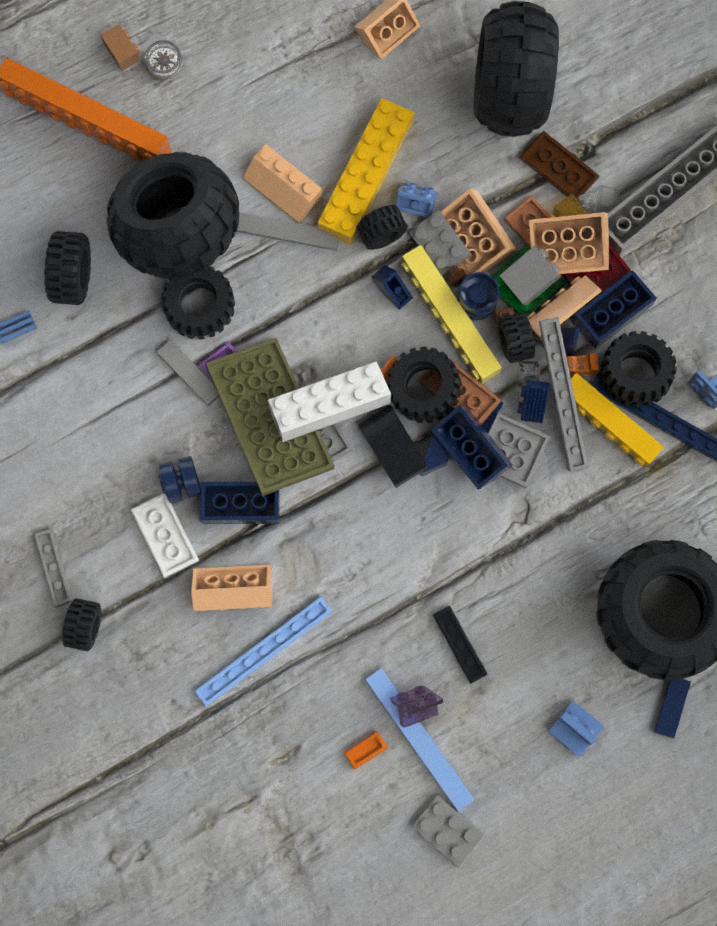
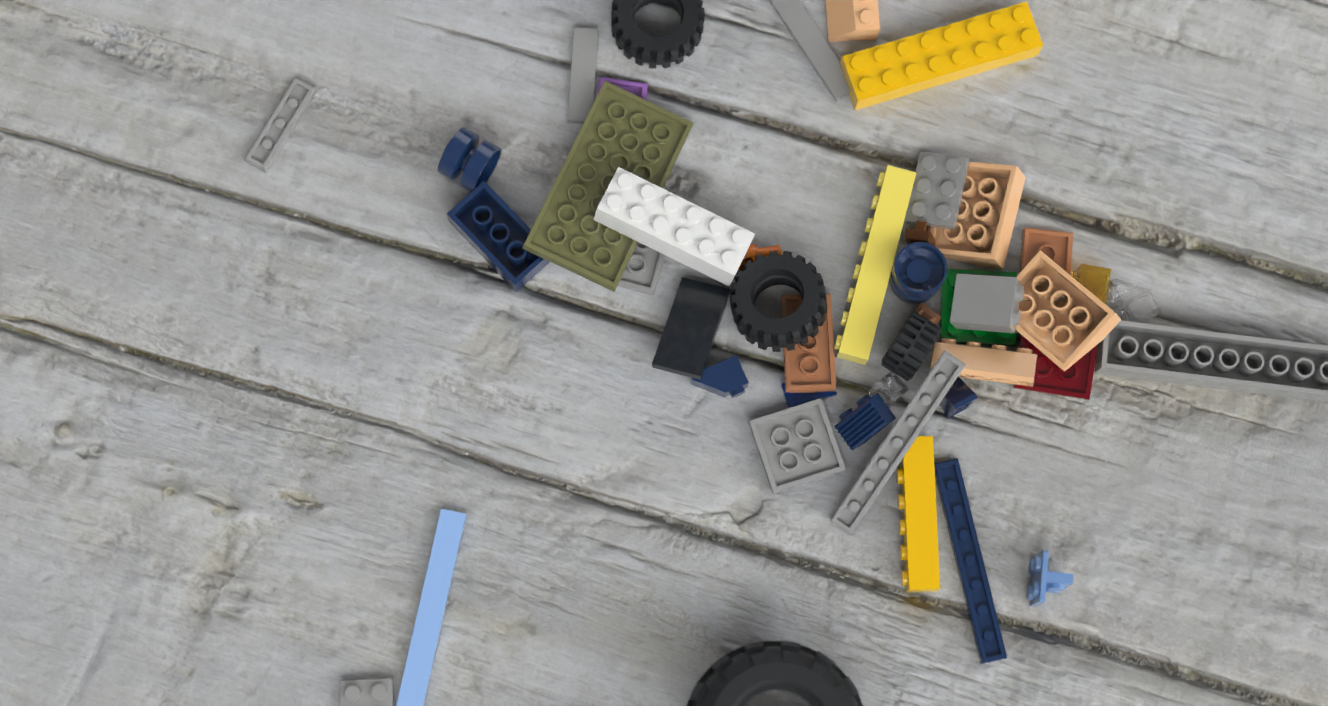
camera: 40 degrees right, 0 degrees up
(81, 624) = (247, 197): black tyre -> none
(165, 535) = (405, 198): white tile -> none
(232, 587) = (412, 303): light nougat slope -> none
(263, 651) = (380, 389): light blue tile -> none
(365, 750) = (373, 571): orange tile -> none
(382, 227) = (896, 119): black tyre -> none
(392, 286) = (849, 185): dark blue slope -> none
(416, 199) = (959, 127): medium blue bracket -> none
(416, 705) = (458, 578): clear purple bracket -> none
(460, 644) = (558, 568): black tile -> none
(471, 447) = (760, 401): dark blue slope -> none
(516, 68) = (1174, 94): black tyre -> none
(559, 166) = (1130, 233): reddish brown tile -> none
(583, 364) = (946, 434): orange leg -> none
(614, 309) = (1033, 415): dark blue brick -> none
(642, 347) = (1013, 467): black tyre -> none

